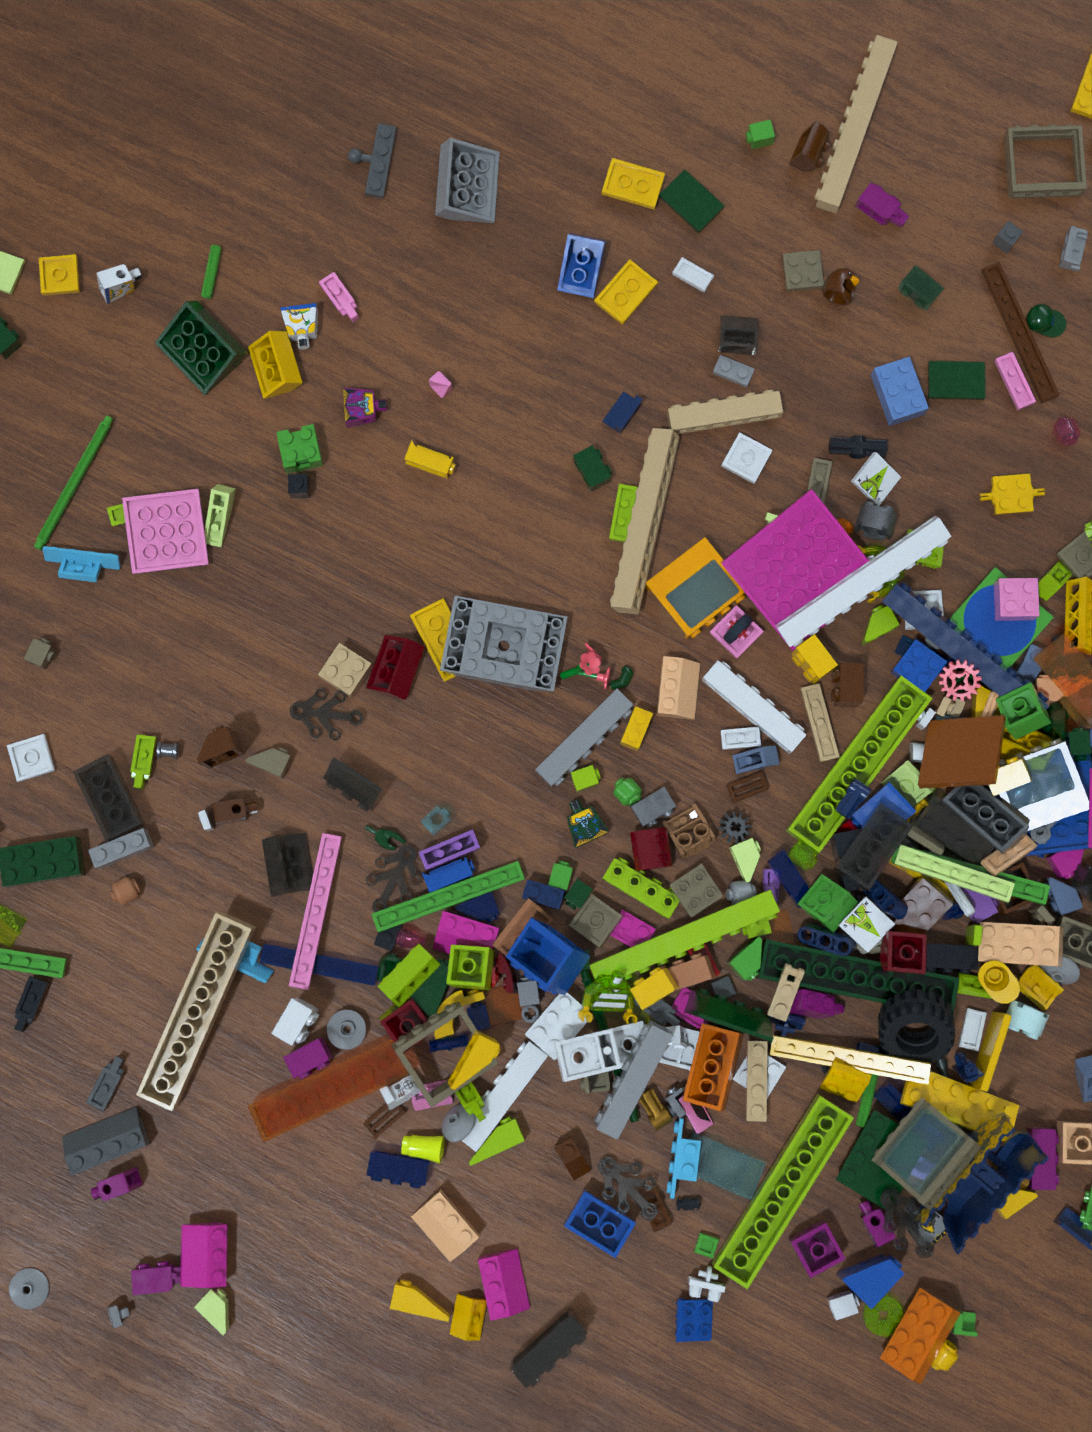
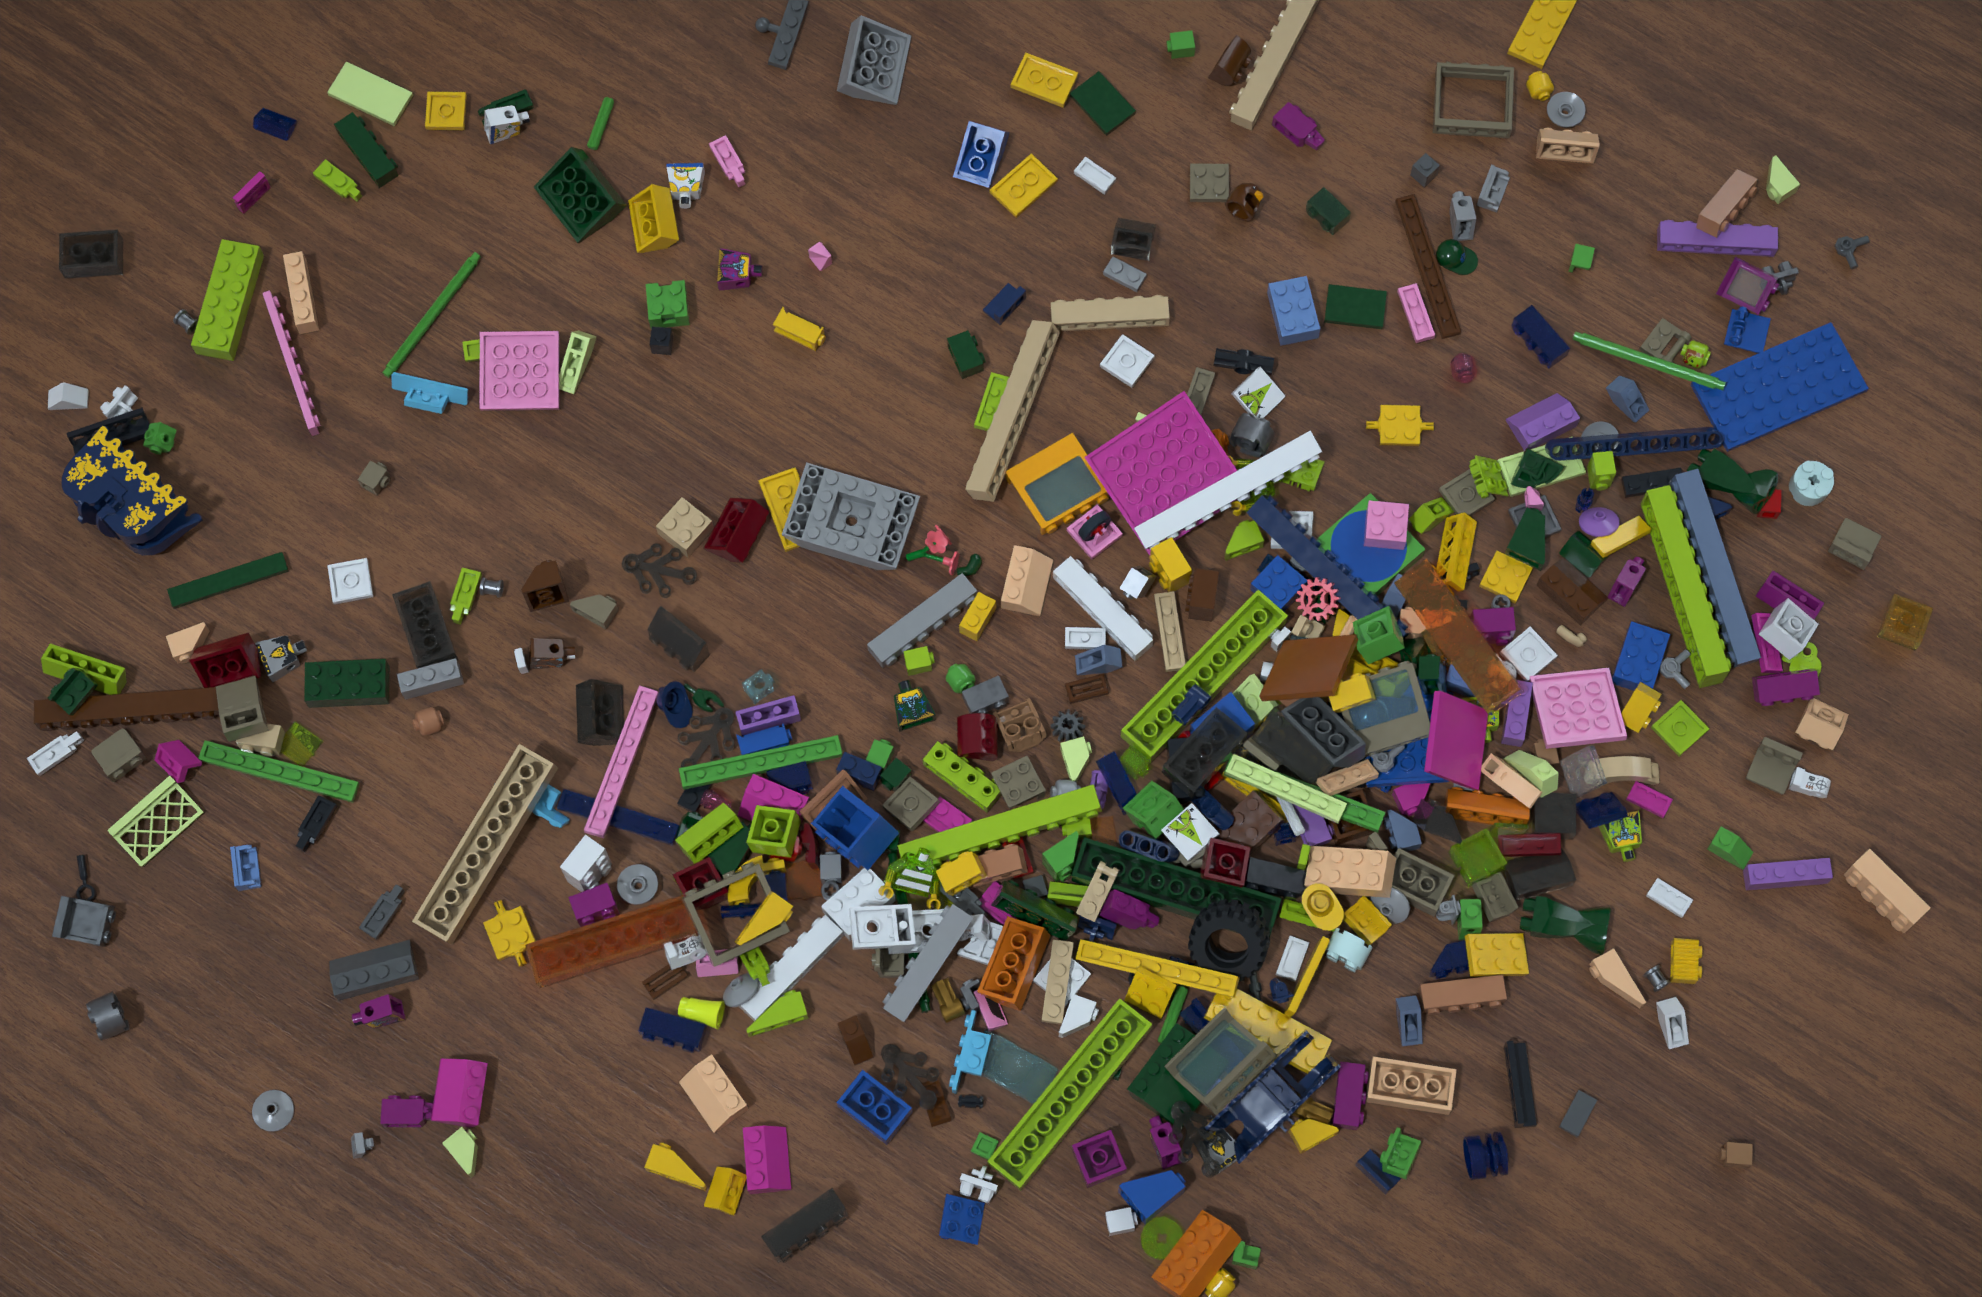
camera: 10 degrees right, 10 degrees down
(129, 257) = (520, 100): none -> dark green hinge
(231, 1090) = (509, 933): none -> yellow plate
(359, 848) = (675, 704): none -> dark blue piece
(754, 991) = (1066, 893): none -> lime panel
(779, 1110) = (1078, 1015): none -> white slope
(785, 680) = (1137, 582): none -> brick
(1049, 280) = (1462, 210): none -> light grey torso

